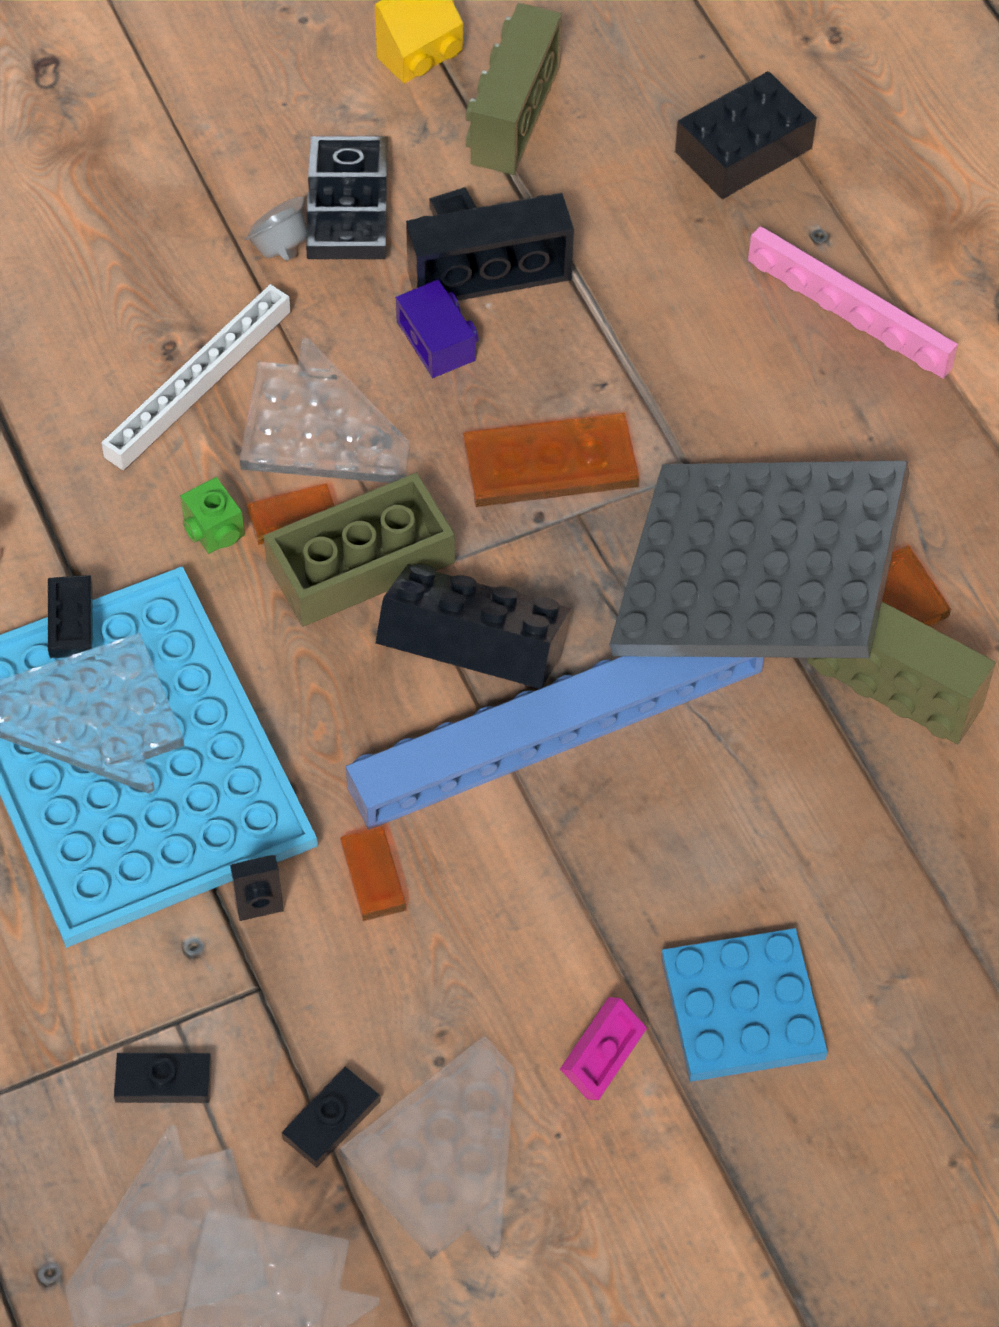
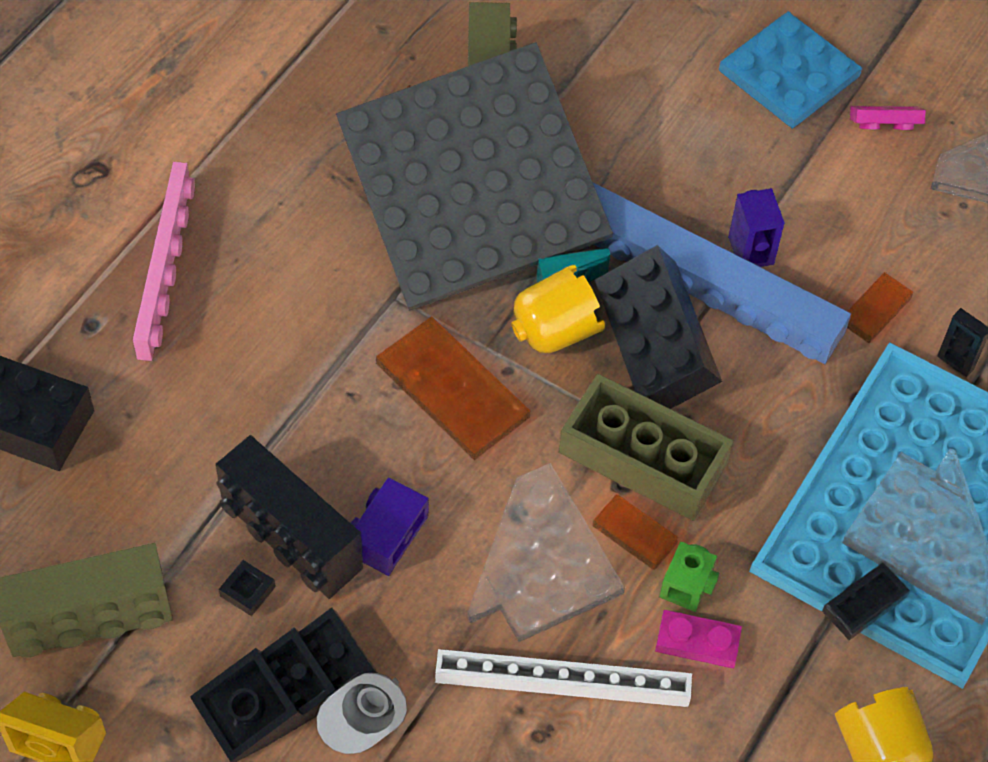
camera: 125 degrees left, 0 degrees up
(152, 499) = (698, 639): none -> dark pink plate
(531, 788) = (756, 227): none -> dark purple brick
(558, 559) = (556, 312): none -> yellow cylinder
(608, 601) = (588, 263): none -> teal slope

